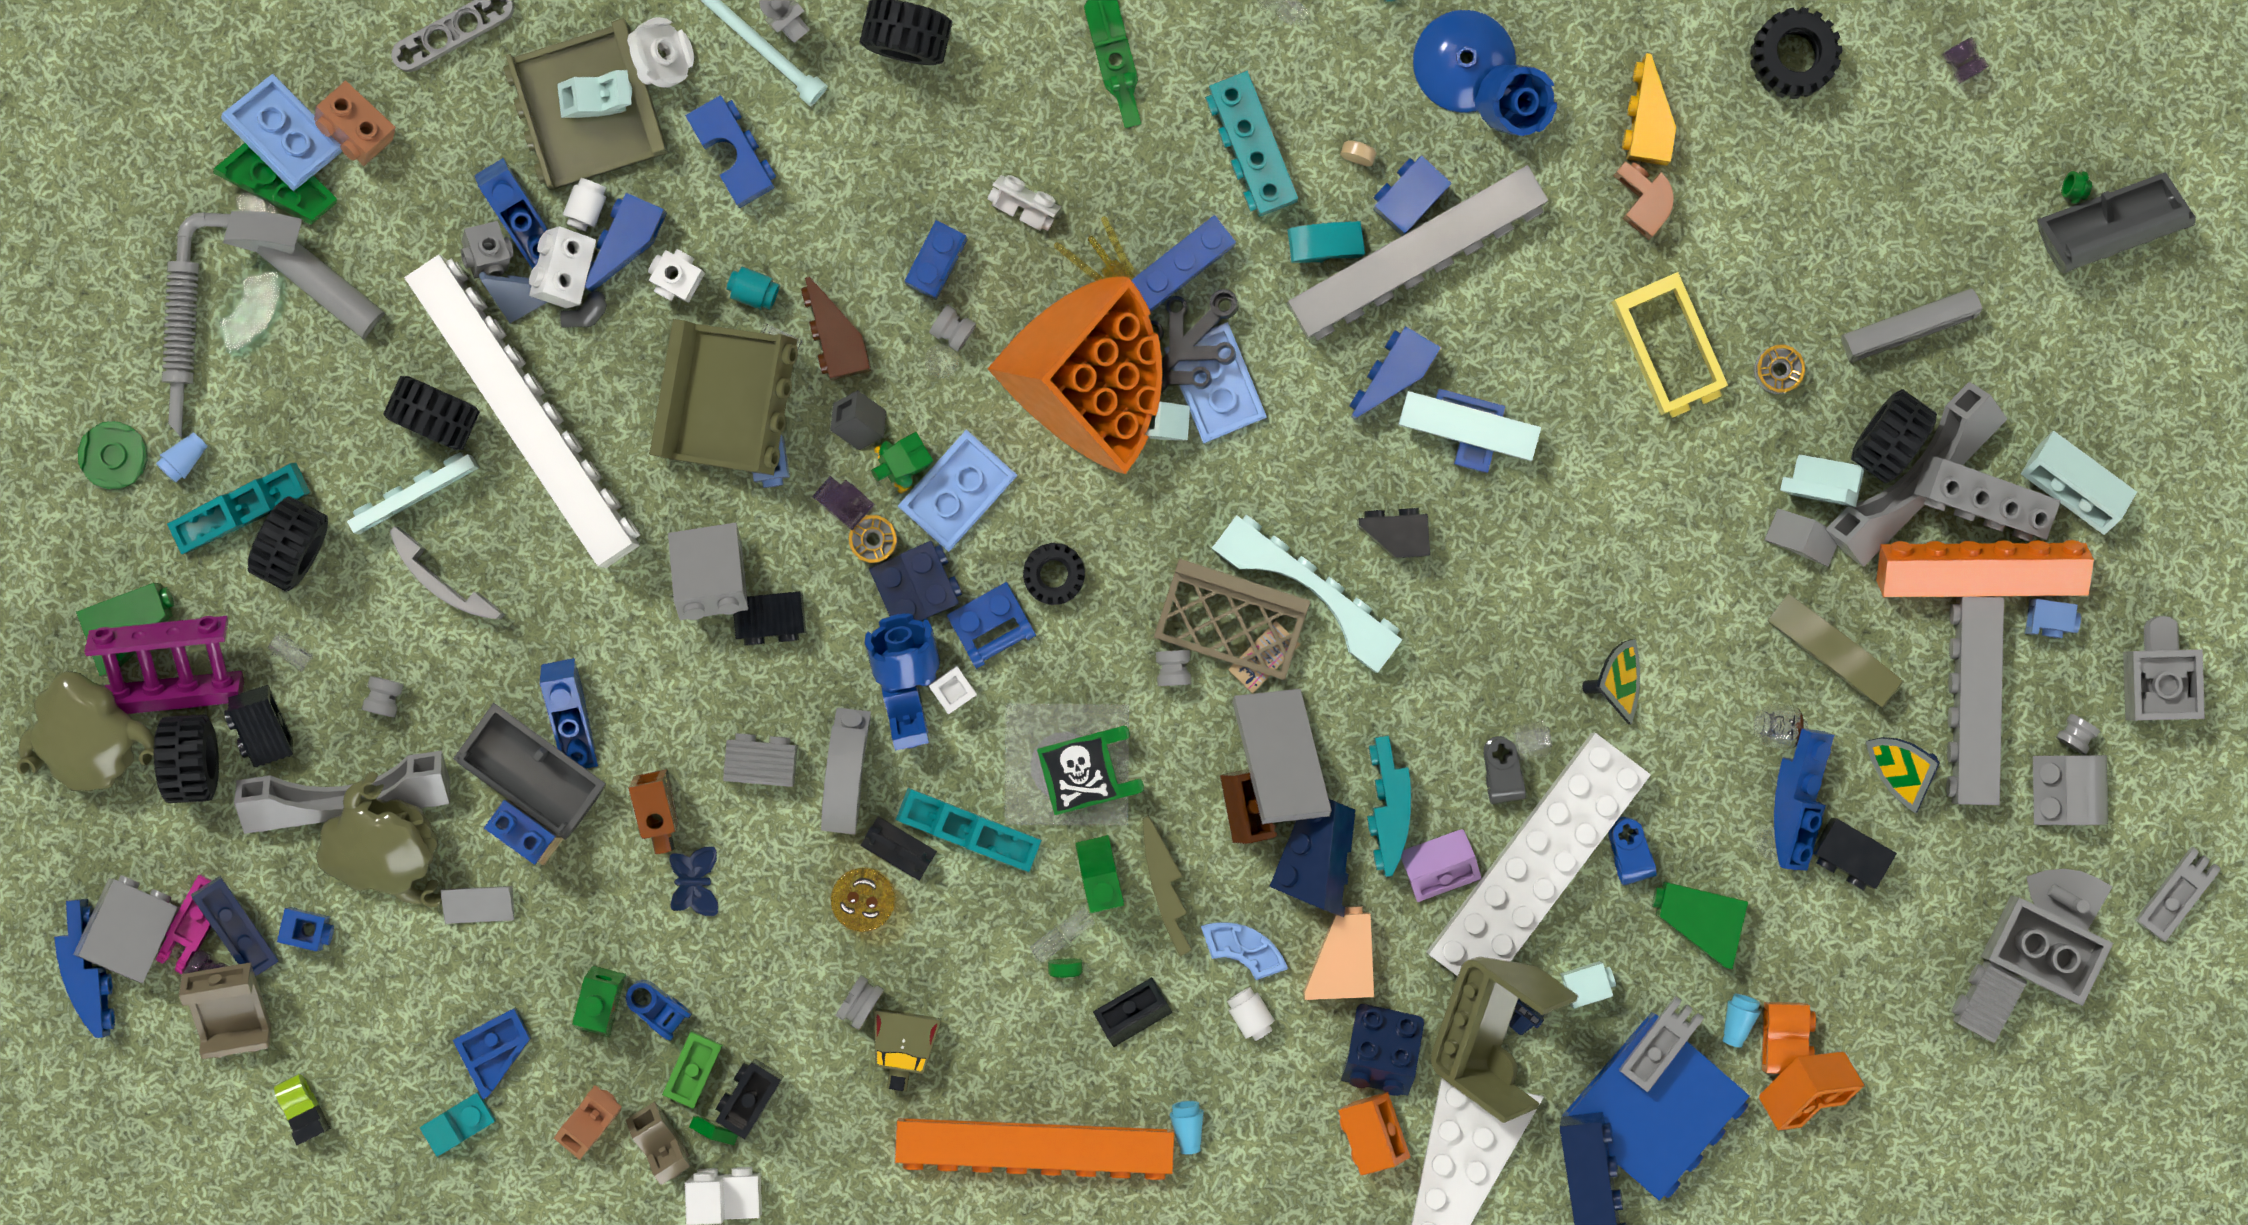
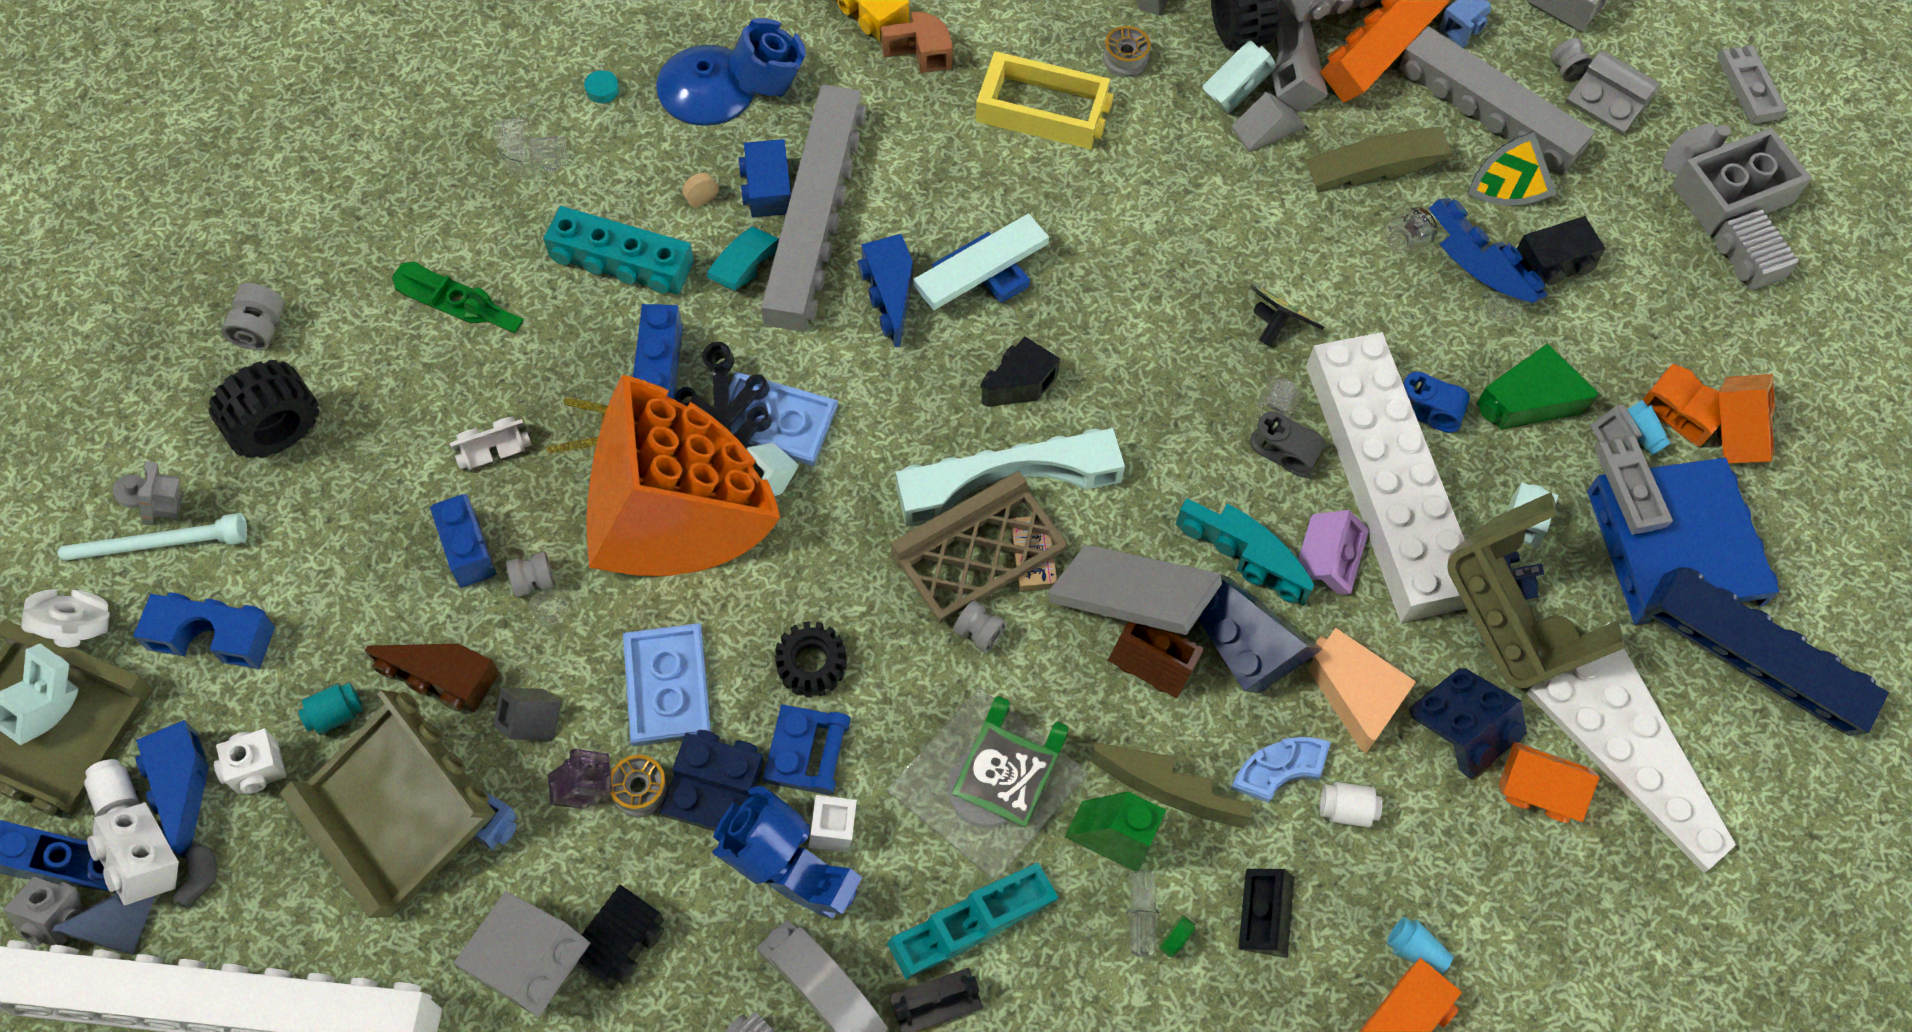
camera: 55 degrees left, 25 degrees down
(901, 461) = (596, 702): green piece -> none
(1717, 1000) = (1615, 424): none -> light grey tile

